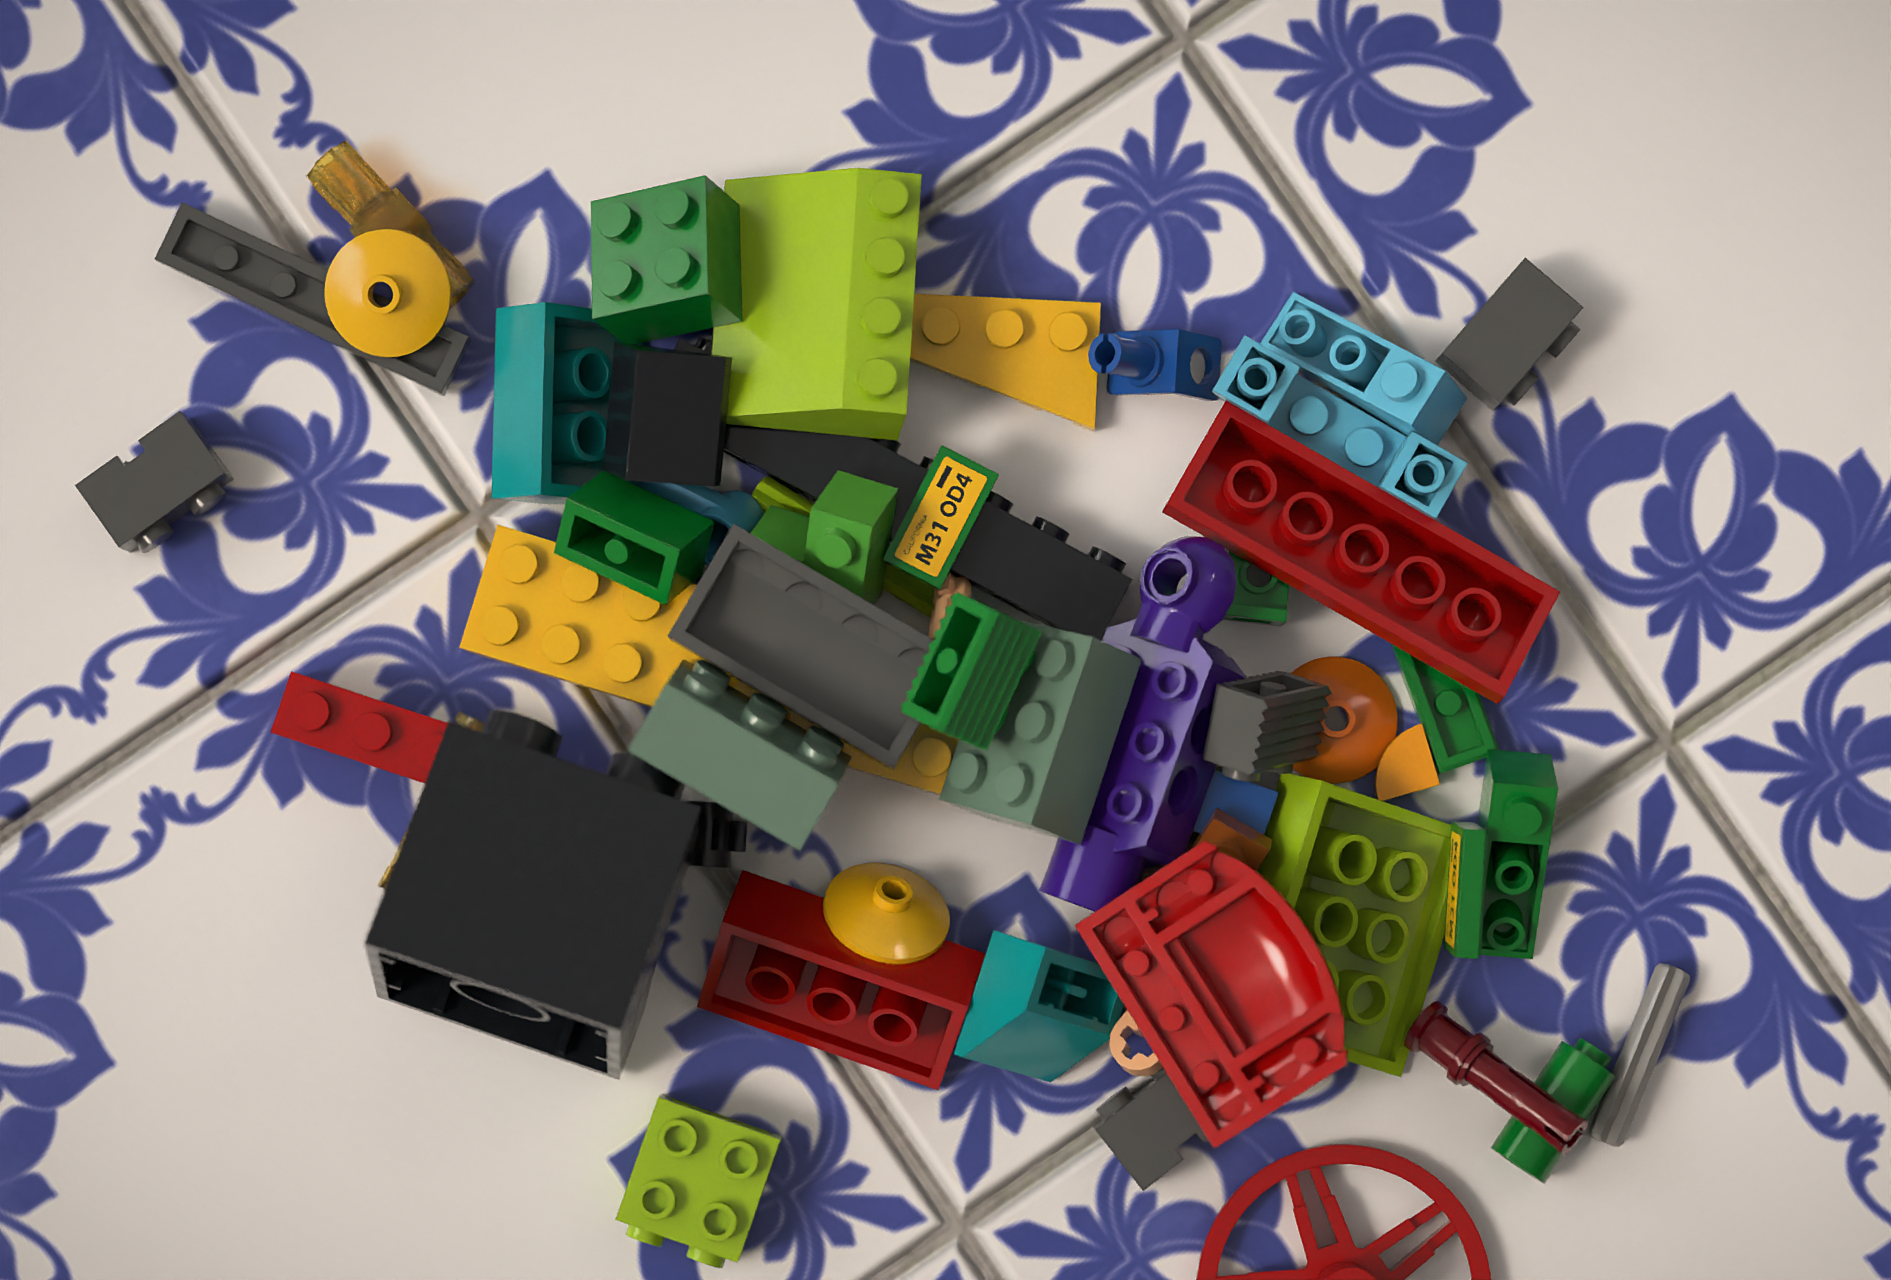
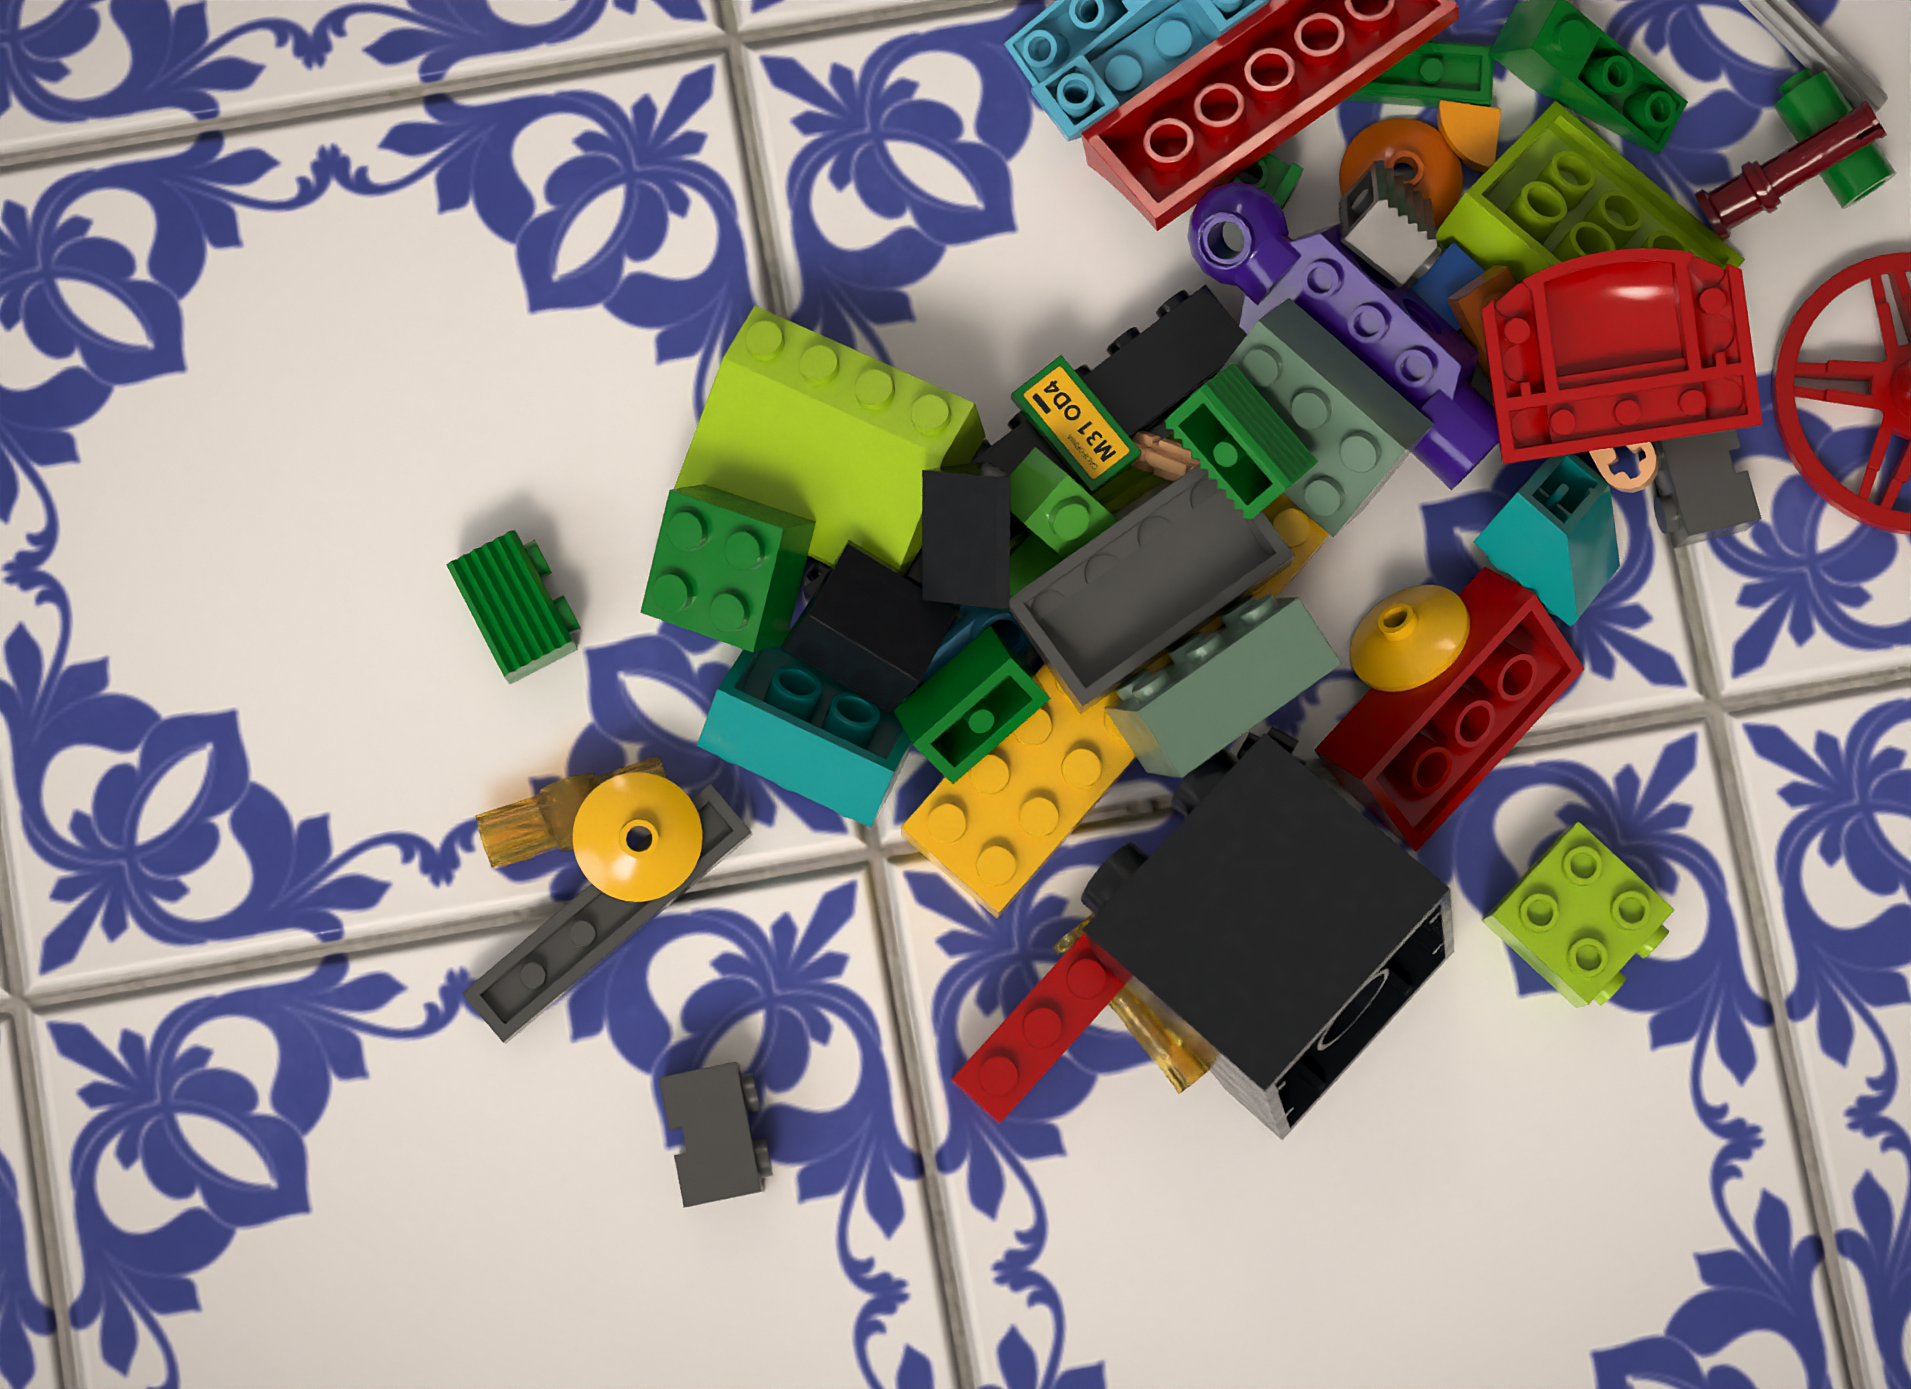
camera: 70 degrees left, 5 degrees down
(553, 86) = (513, 605): none -> green brick
(779, 458) = (966, 535): none -> black slope
(1014, 348) = (950, 297): yellow wing -> none
(1156, 362) = (1016, 184): blue bracket -> none
(1466, 889) = (1608, 123): green tile -> none

